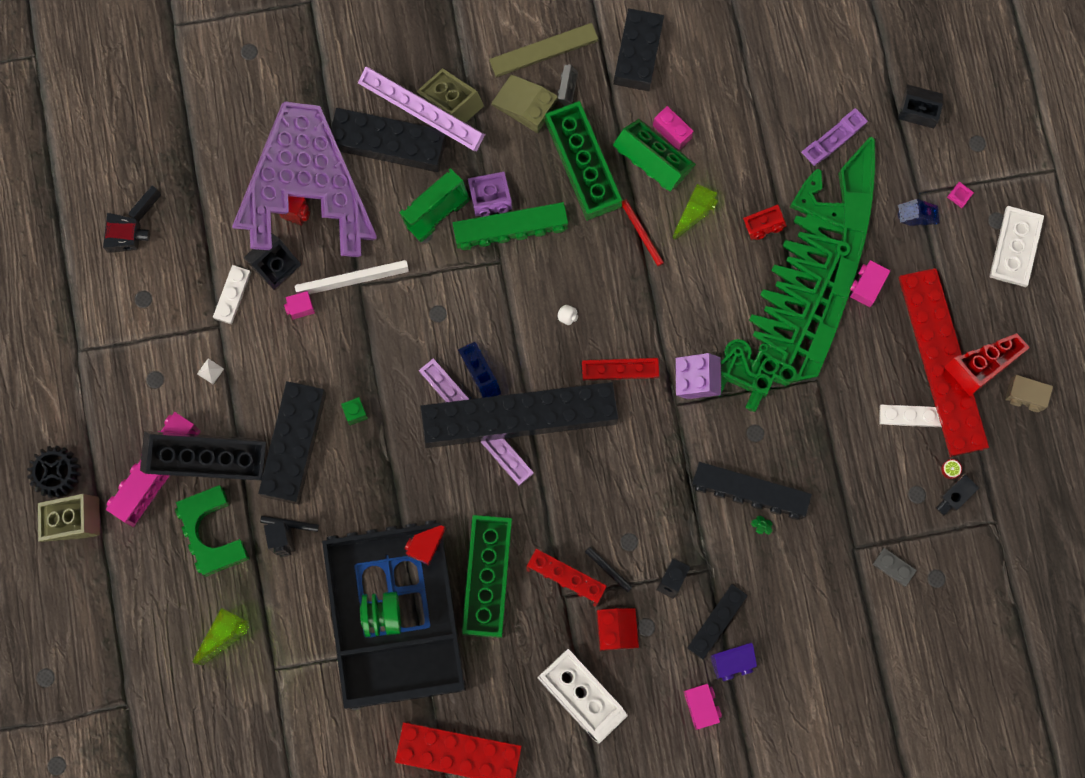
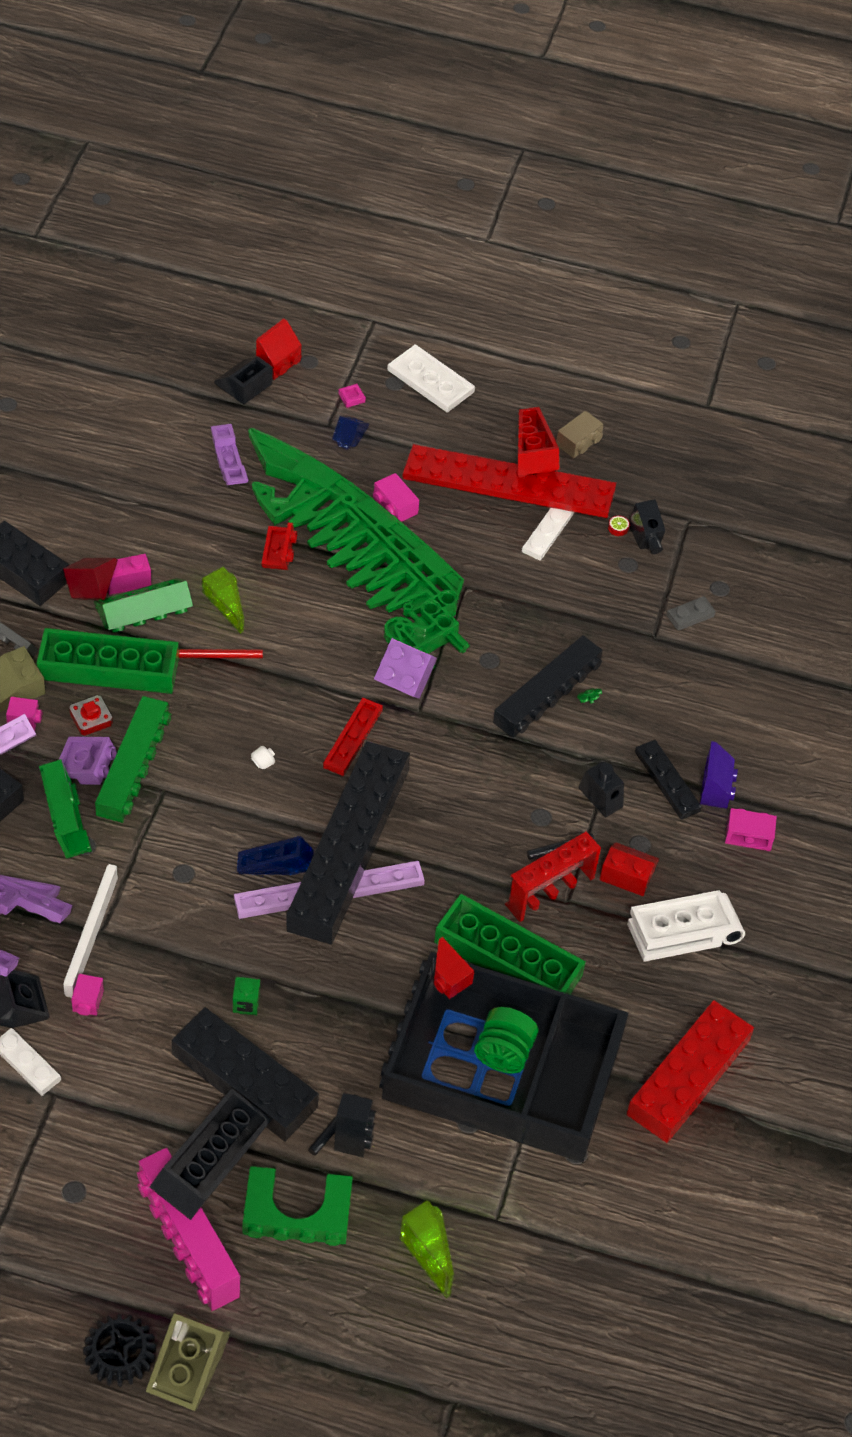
camera: 65 degrees left, 25 degrees down
(210, 371) = (103, 1126): white slope -> none
(505, 129) = (21, 706): none -> dark pink brick
(534, 175) = (91, 715): none -> piece
(650, 104) = (90, 578): none -> dark red slope
(964, 115) = (279, 348): none -> red slope

